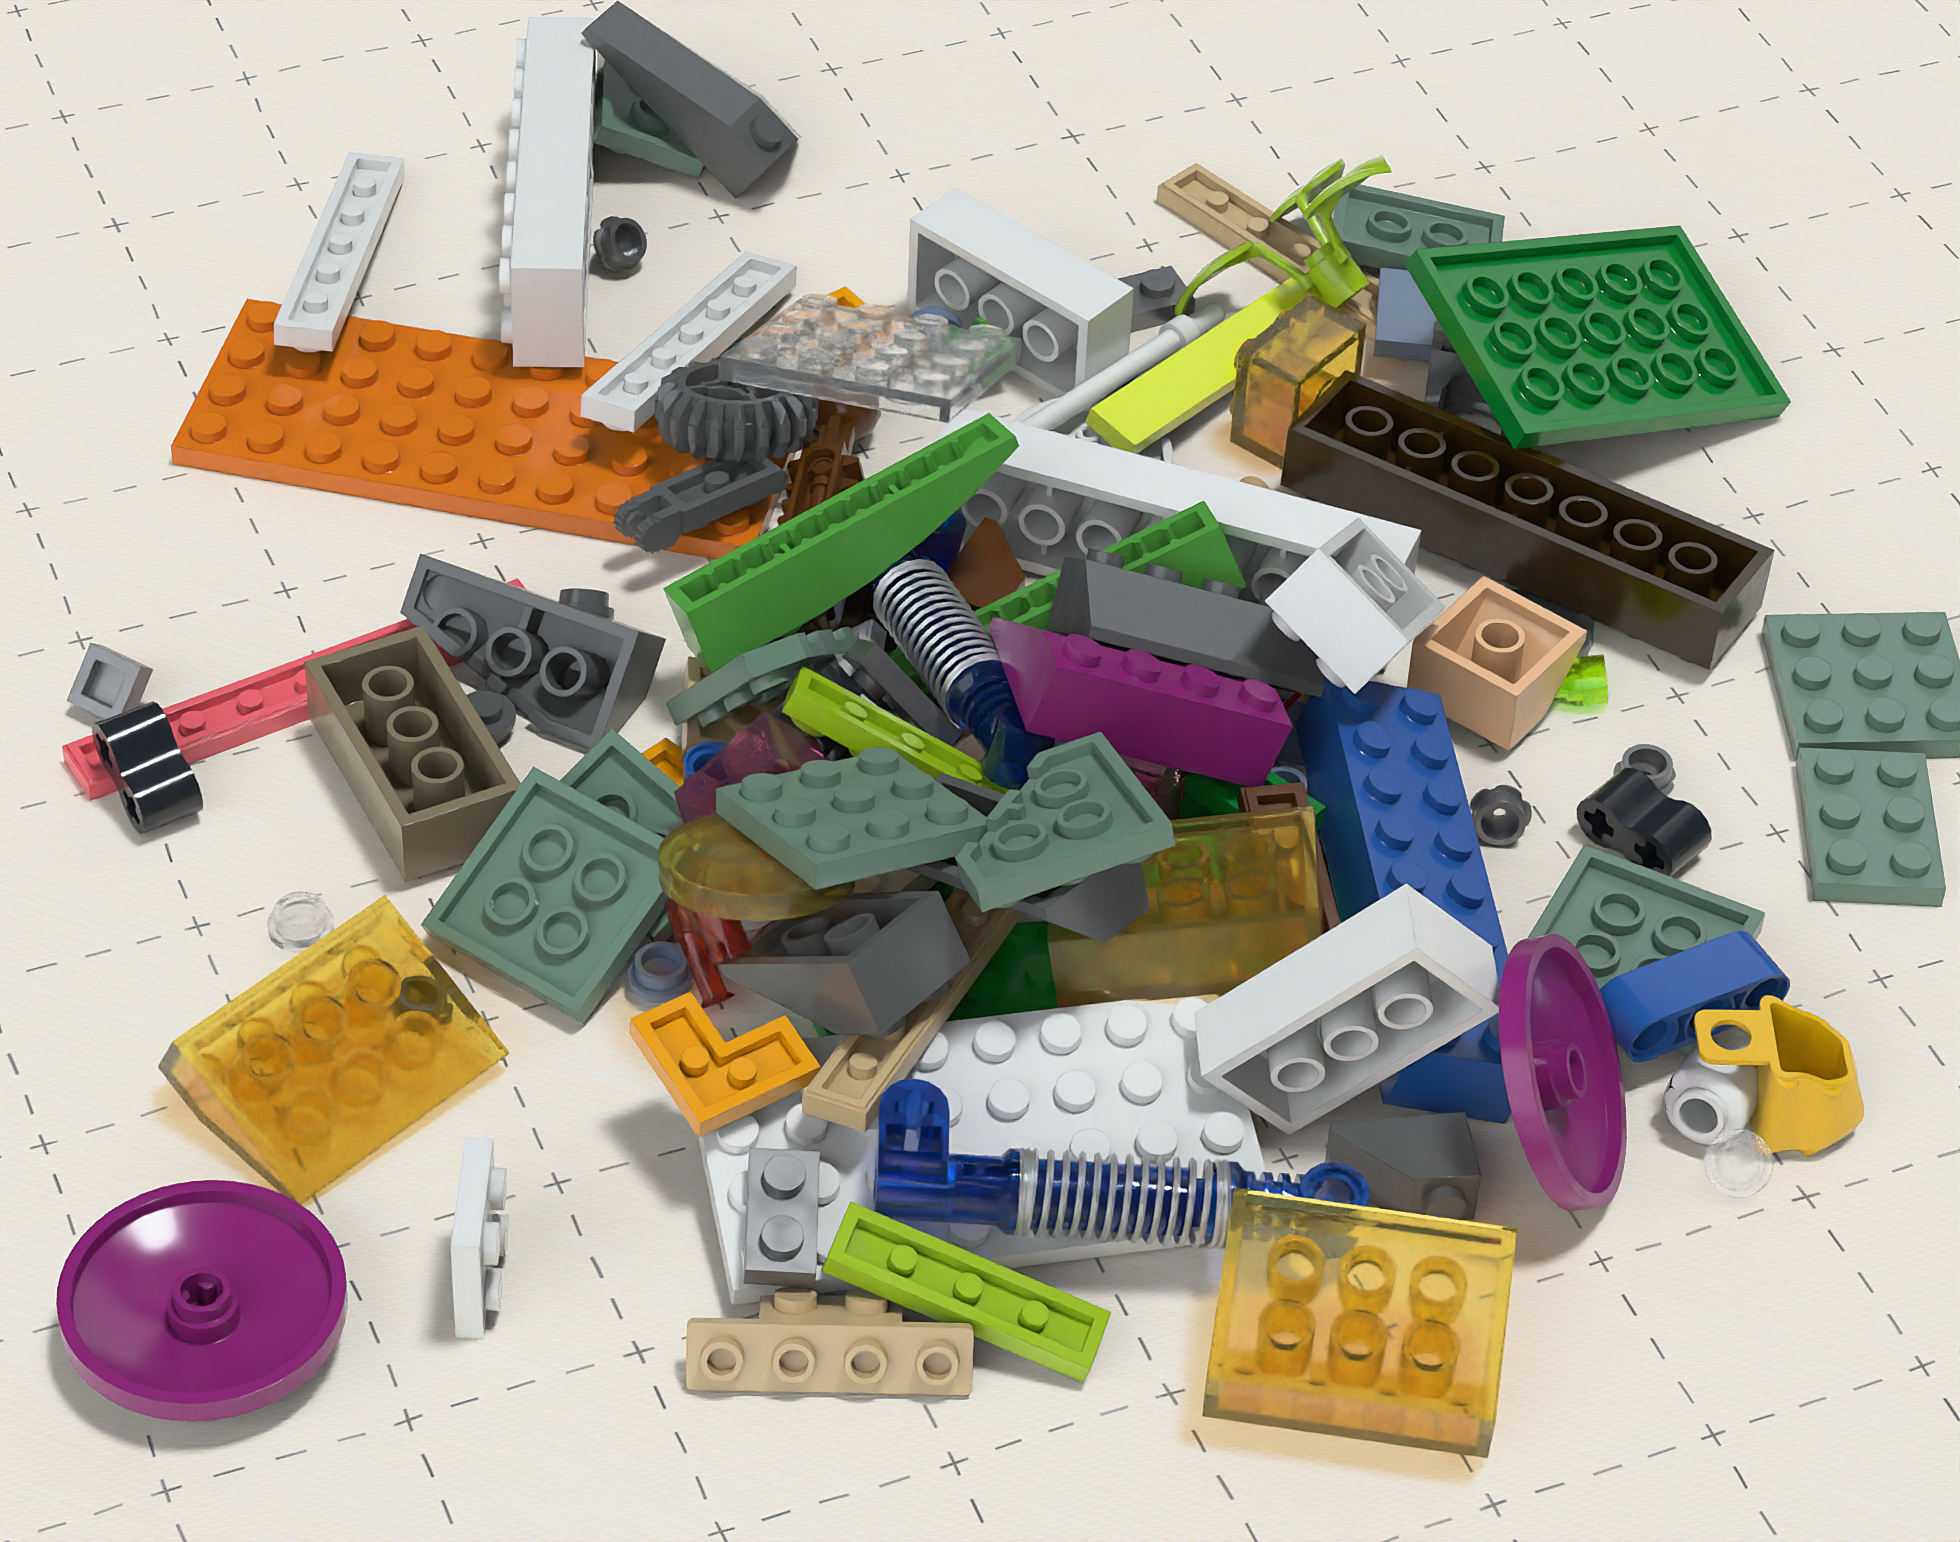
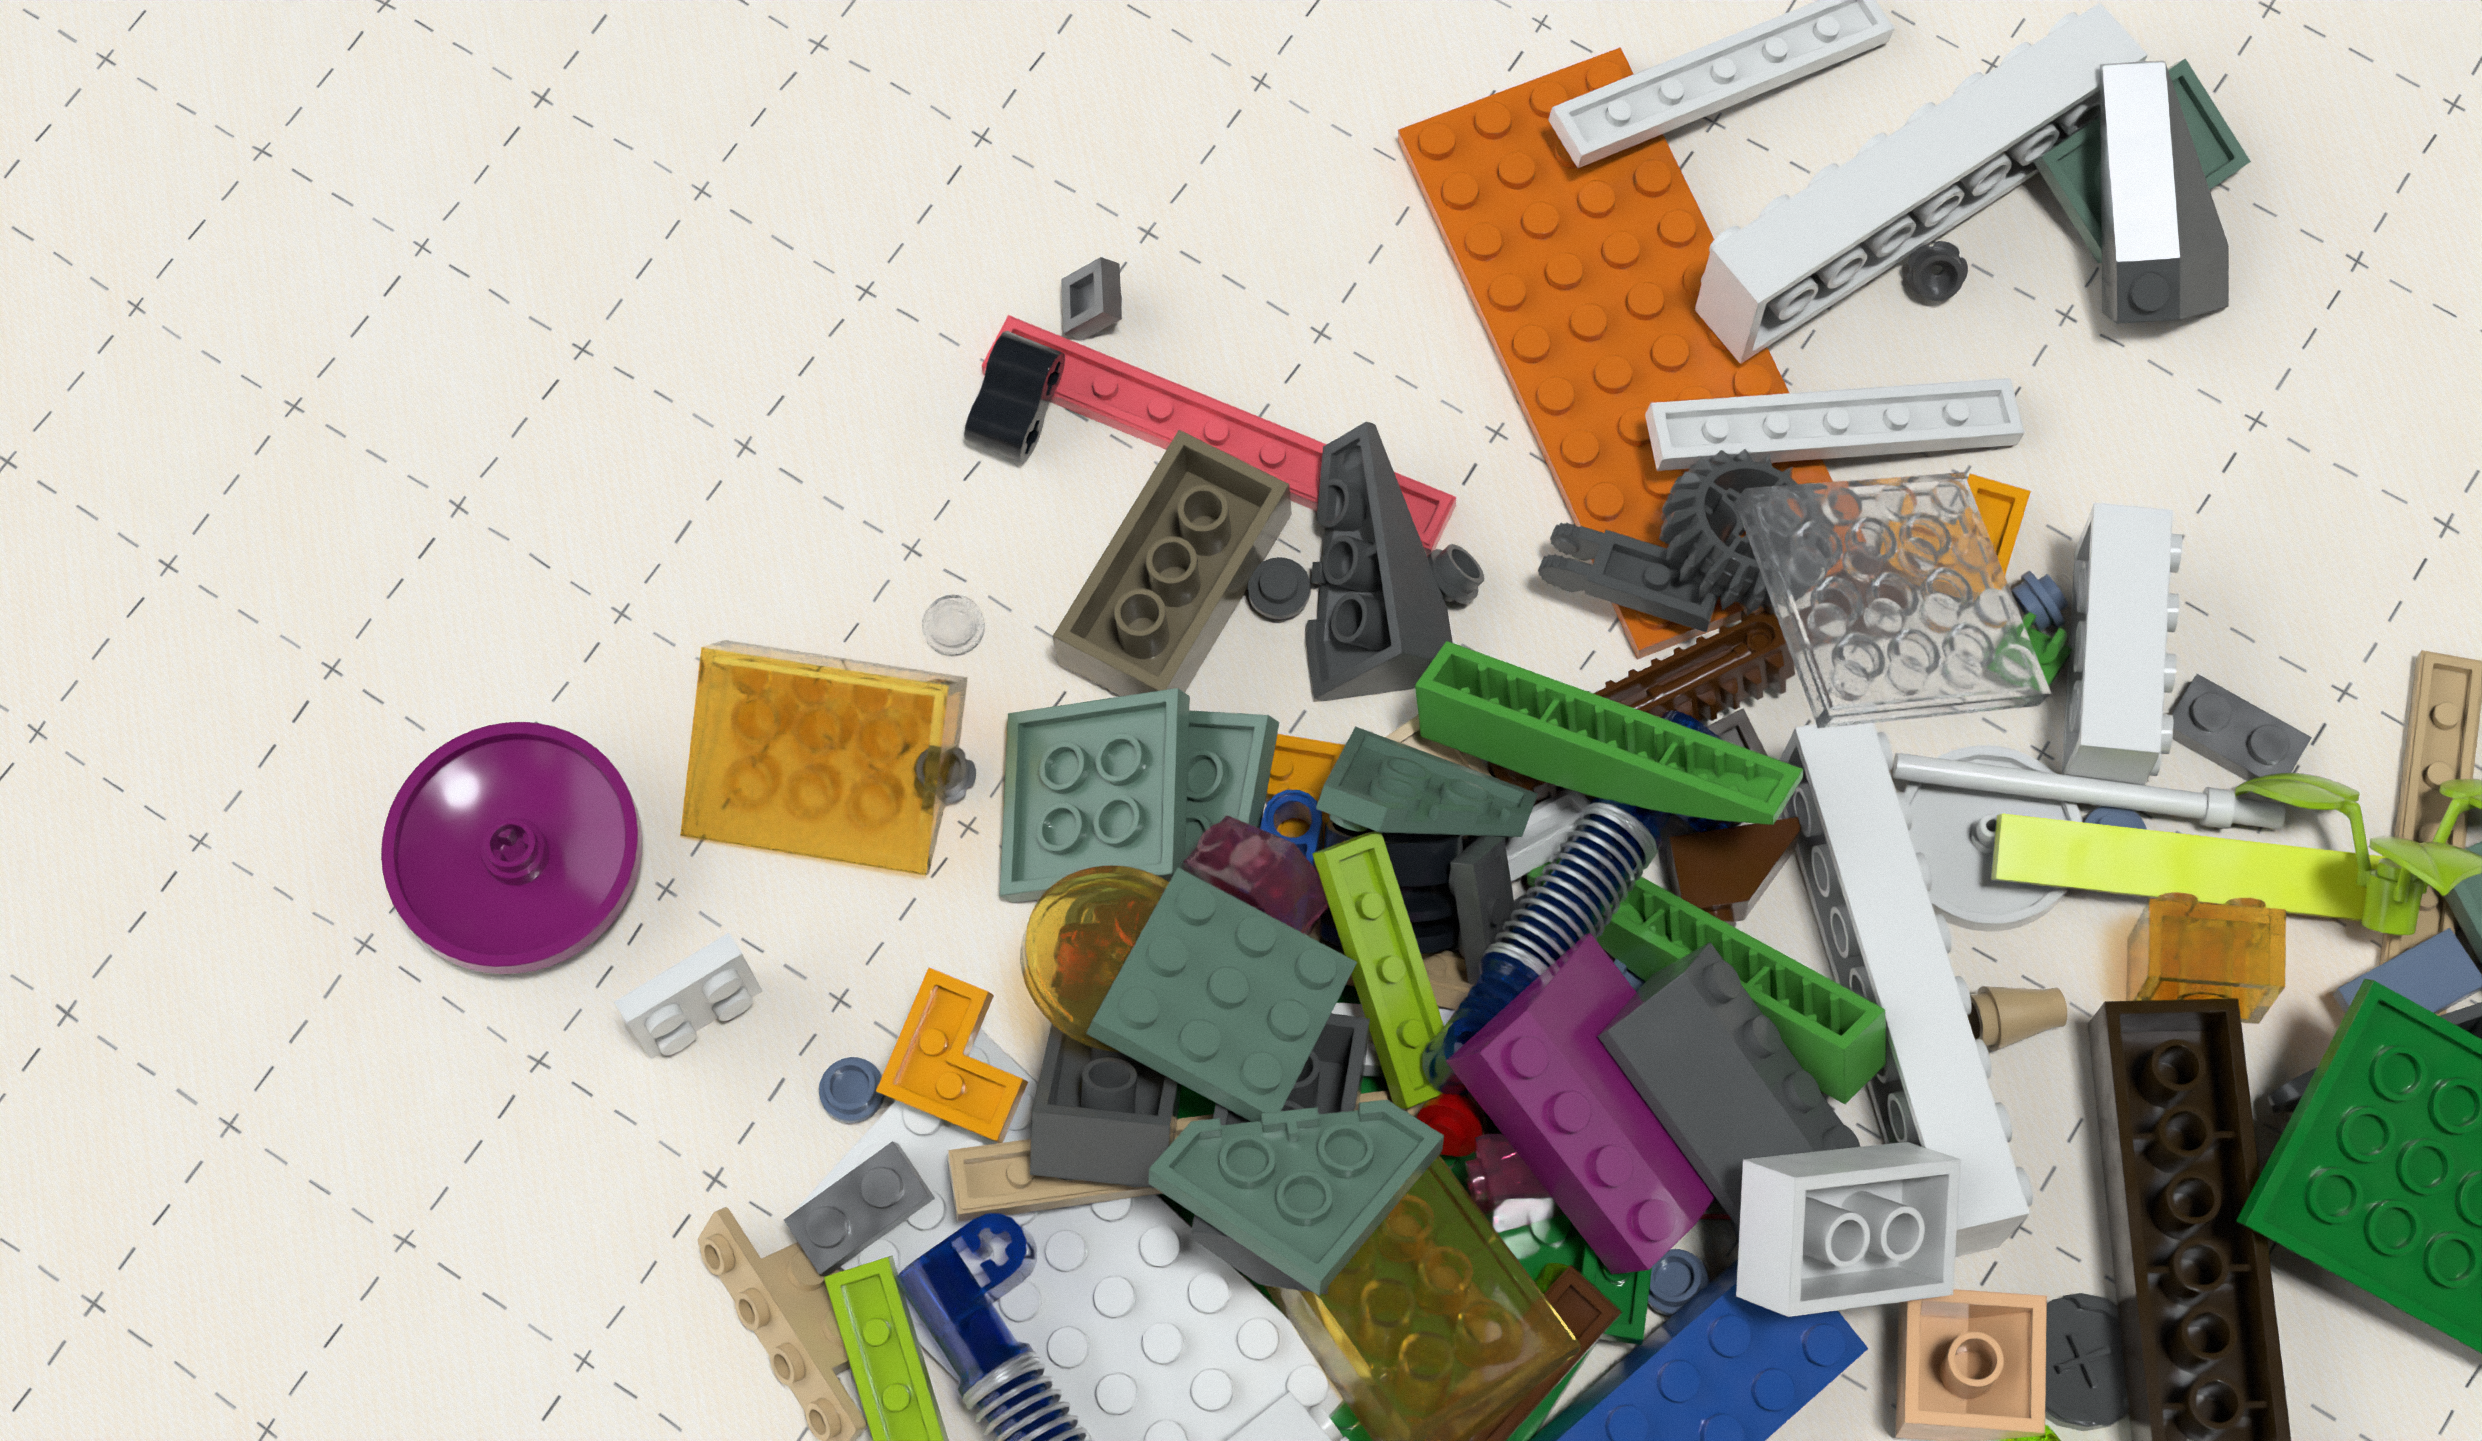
camera: 65 degrees right, 25 degrees up
(652, 1203) = (850, 1090): none -> sand blue plate

